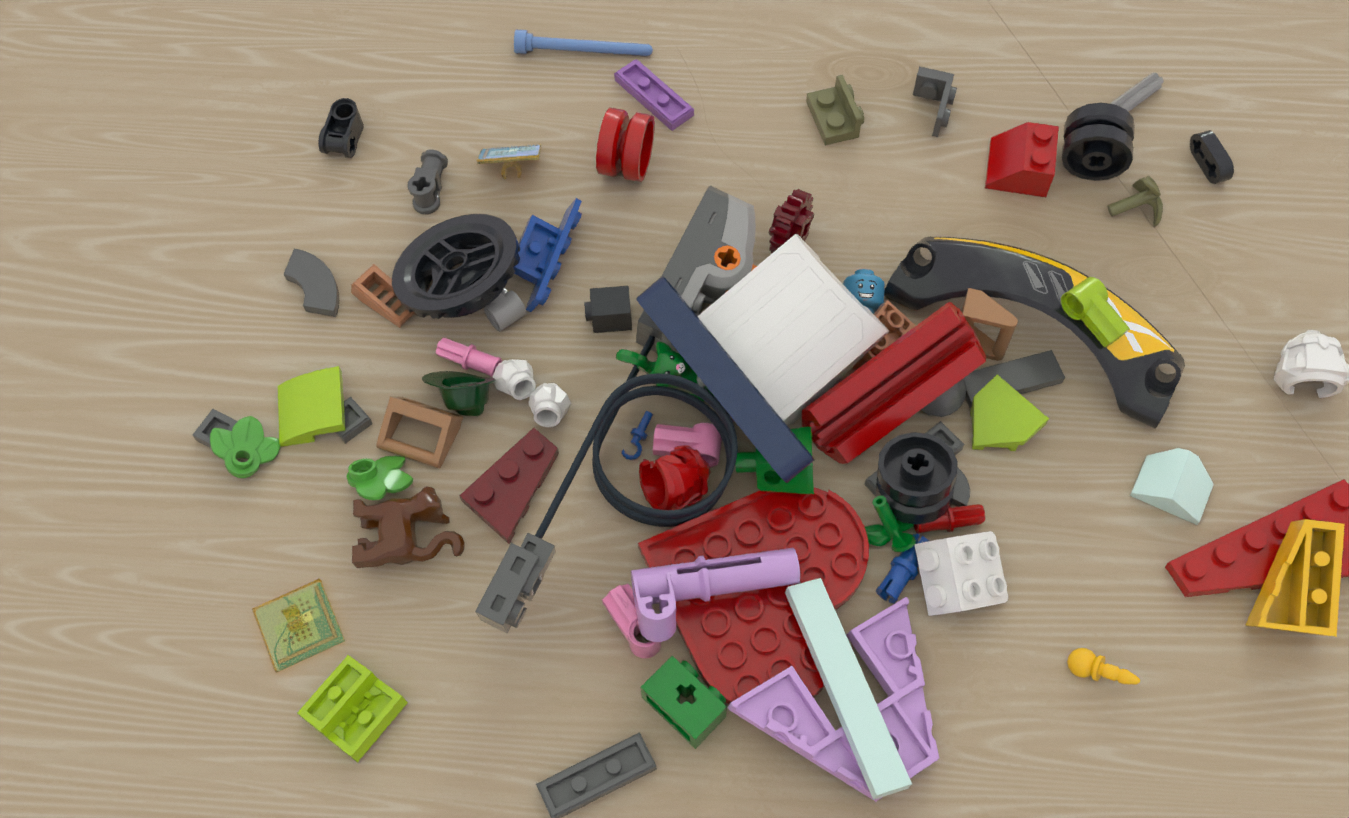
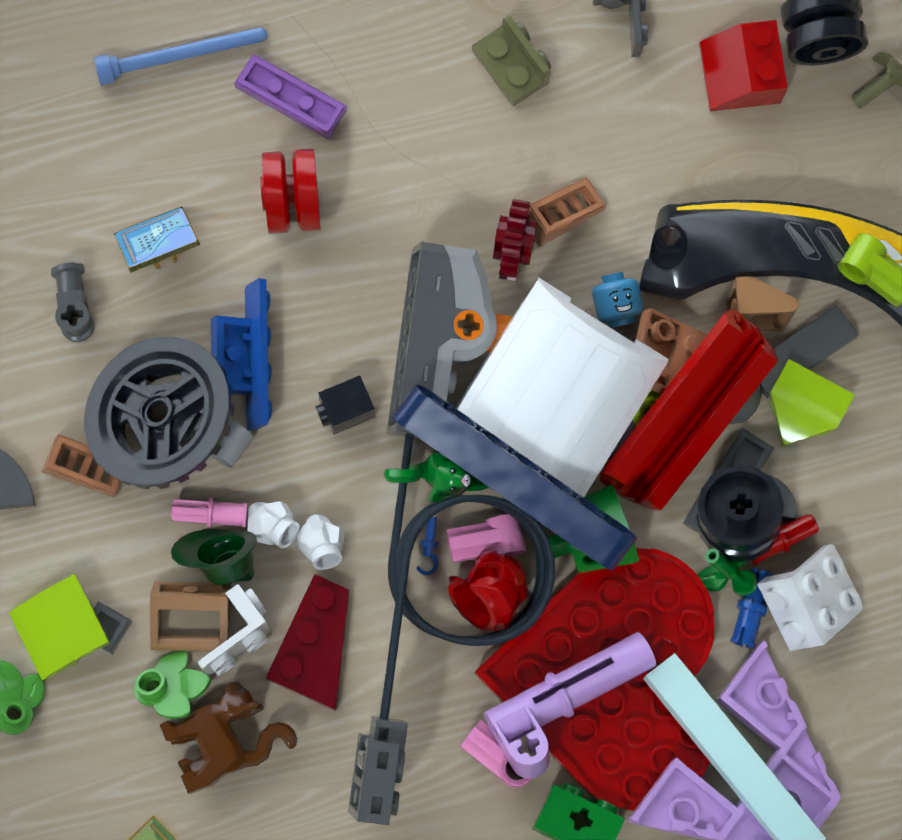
camera: 25 degrees left, 15 degrees up
(447, 453) = (249, 638): none -> white bracket
(822, 230) = (548, 226): none -> nougat slope

